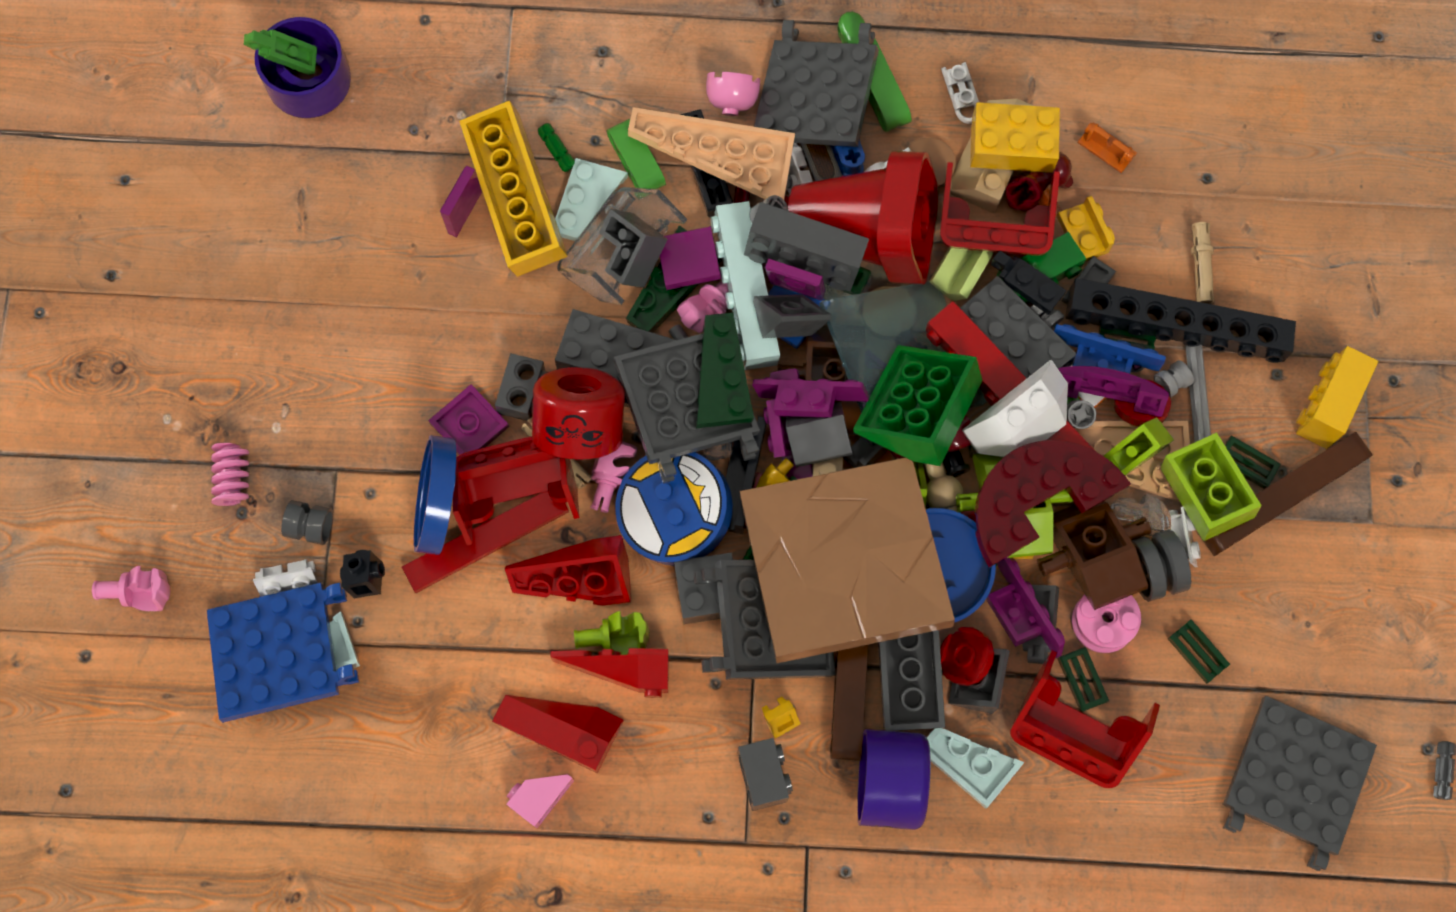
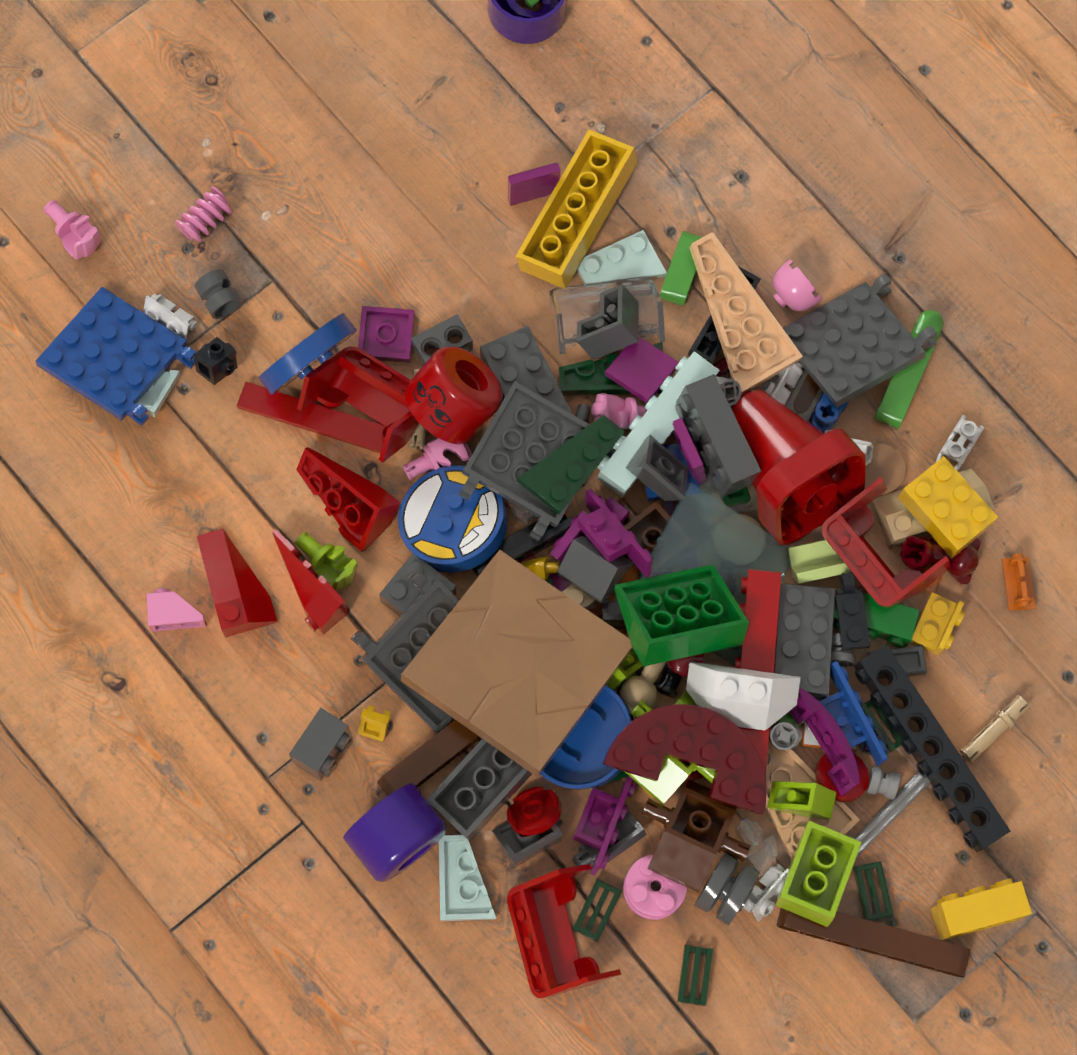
camera: 45 degrees right, 0 degrees up
(556, 147) = (638, 210): green axle -> none

